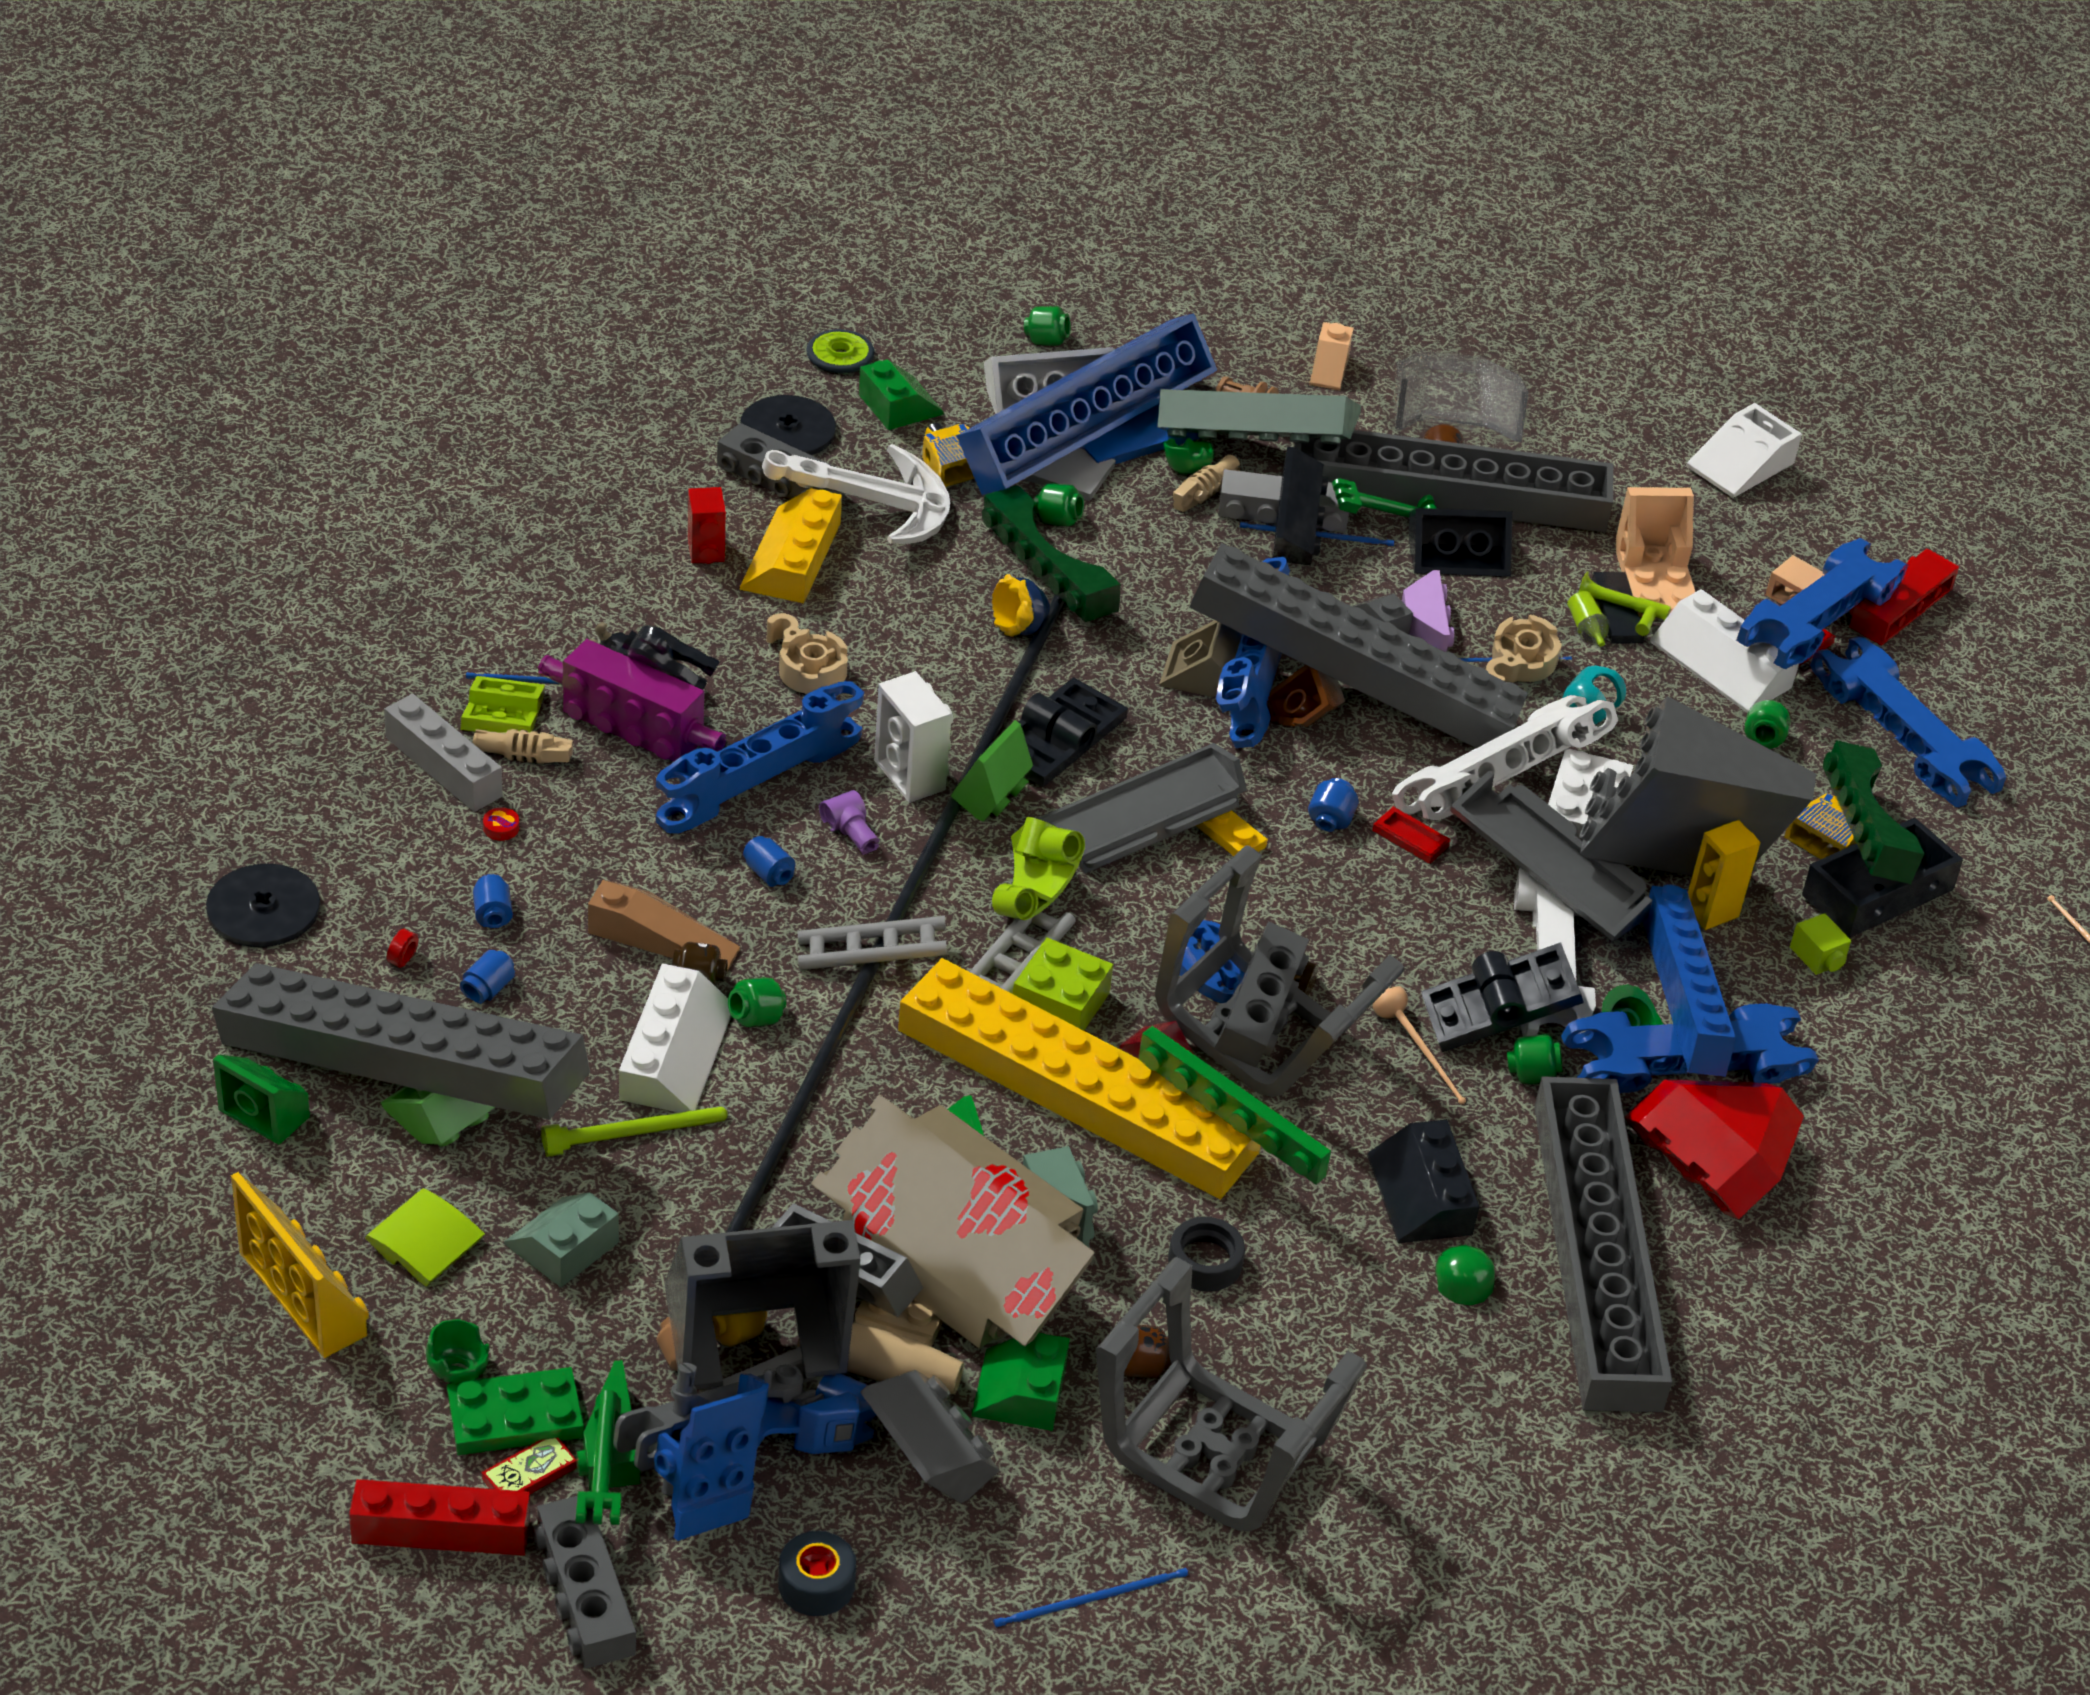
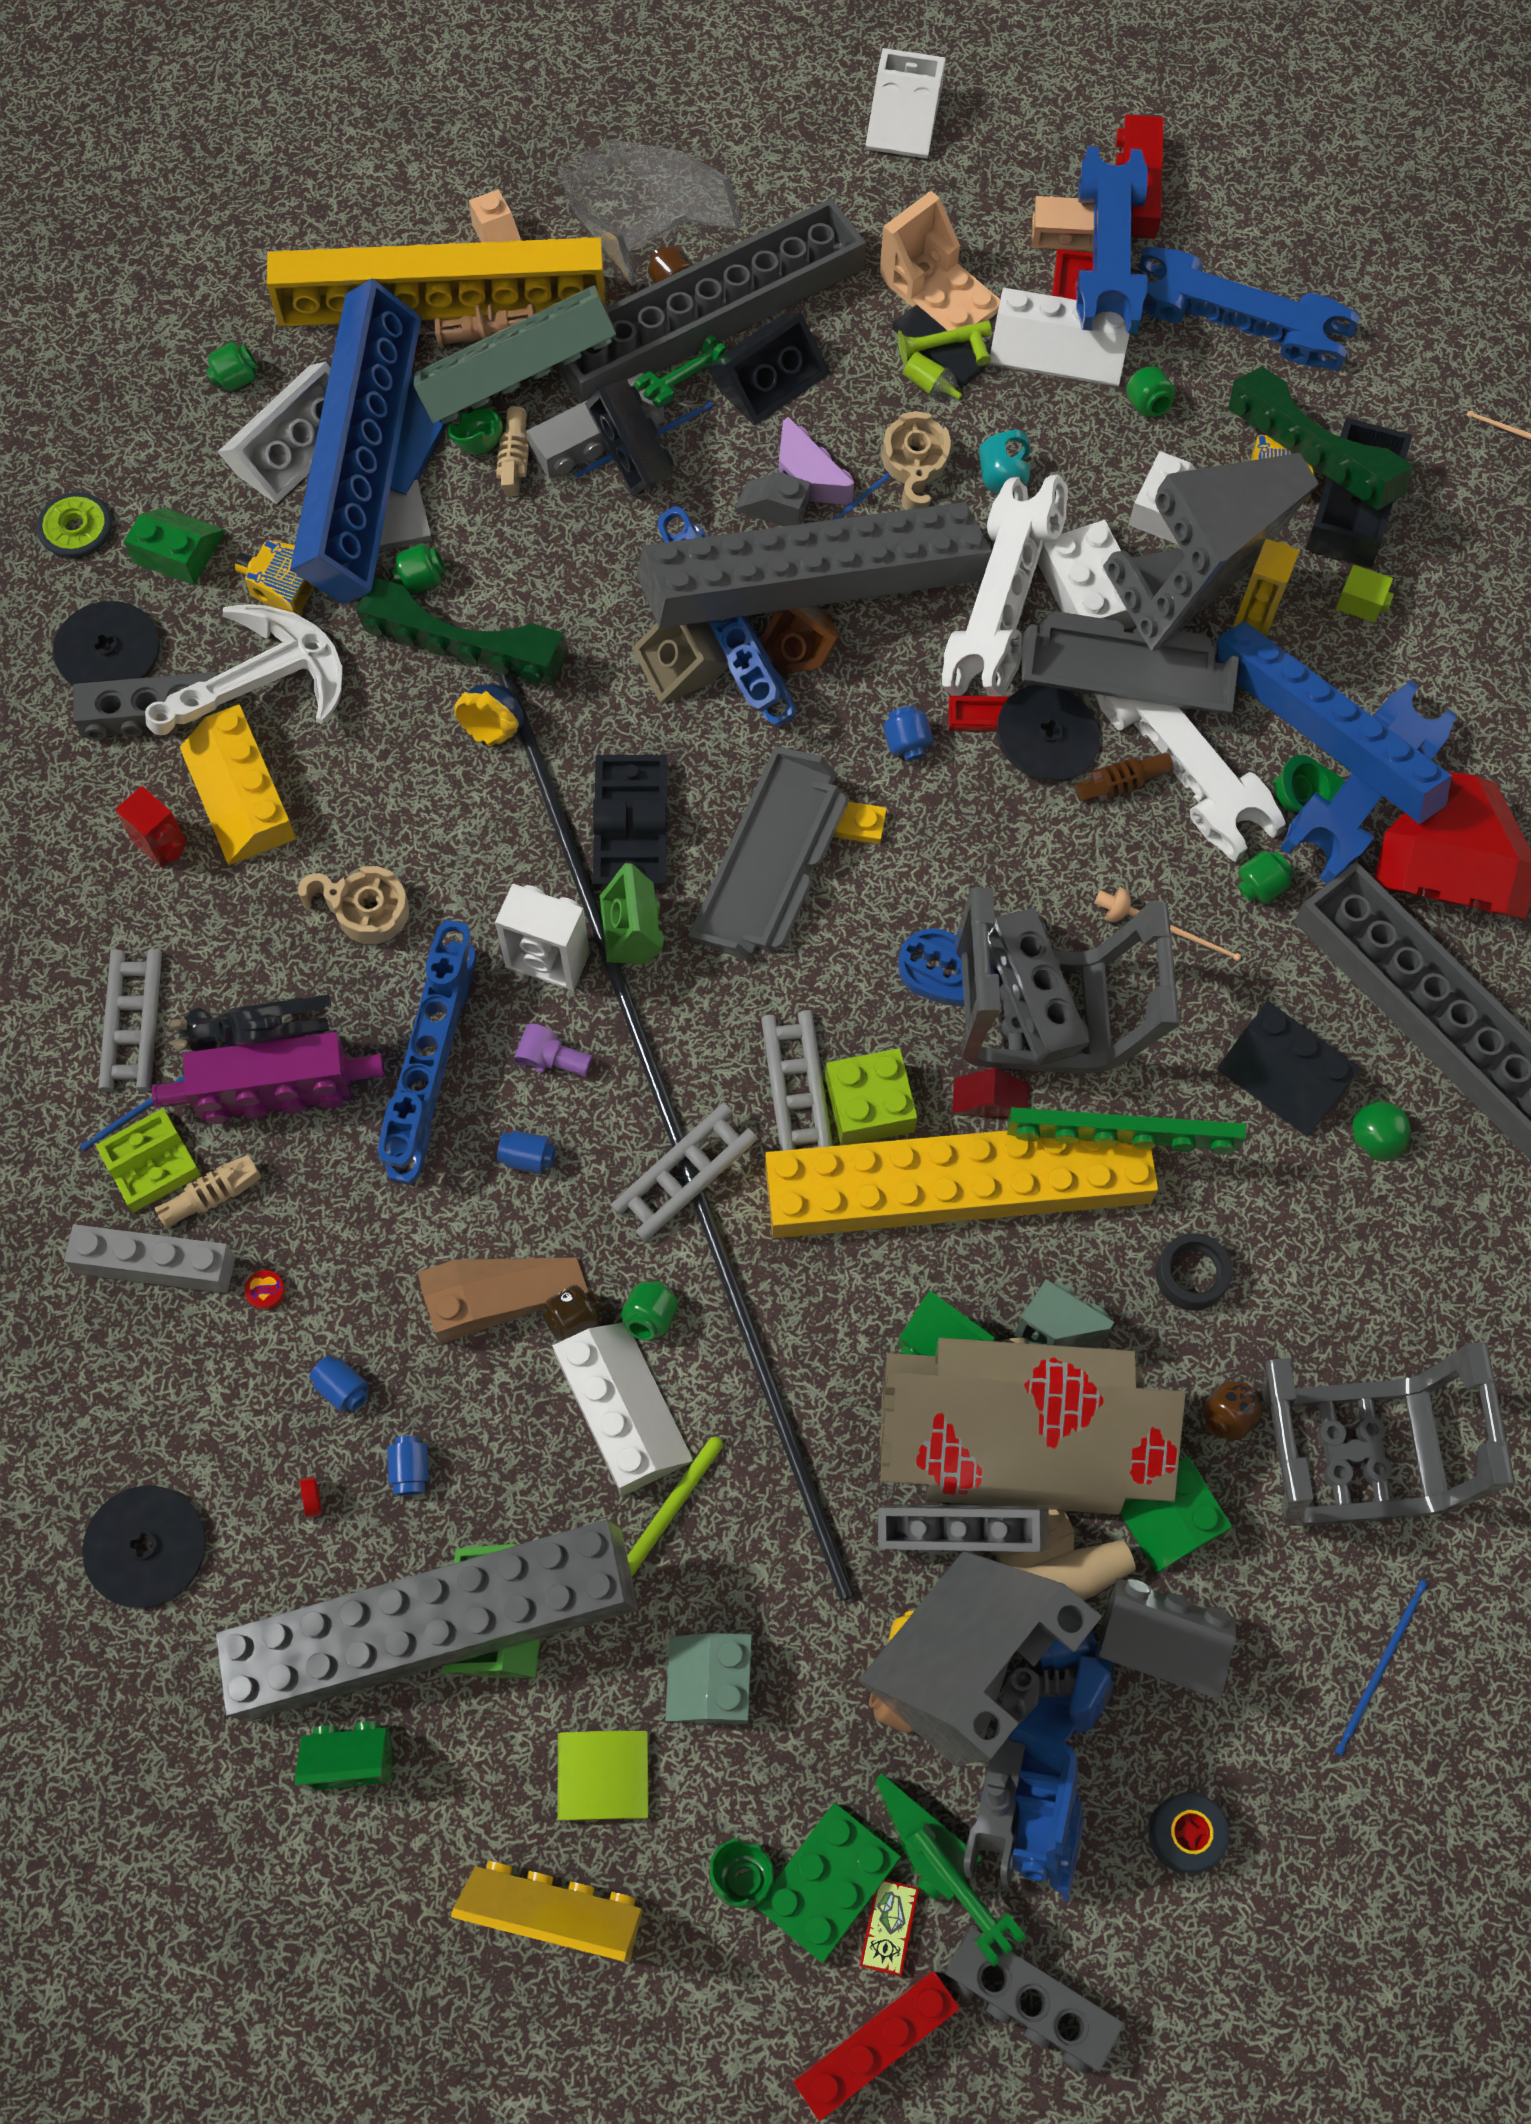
camera: 35 degrees left, 25 degrees up
(581, 613) = (146, 1036): none -> light grey bar
(1042, 868) = (753, 989): lime panel -> none
(1250, 348) = (435, 278): none -> yellow brick
(1428, 876) = (1023, 738): none -> black piece
(1483, 933) = (1123, 777): none -> reddish brown hinge
(1501, 995) = (1202, 840): black plate -> none

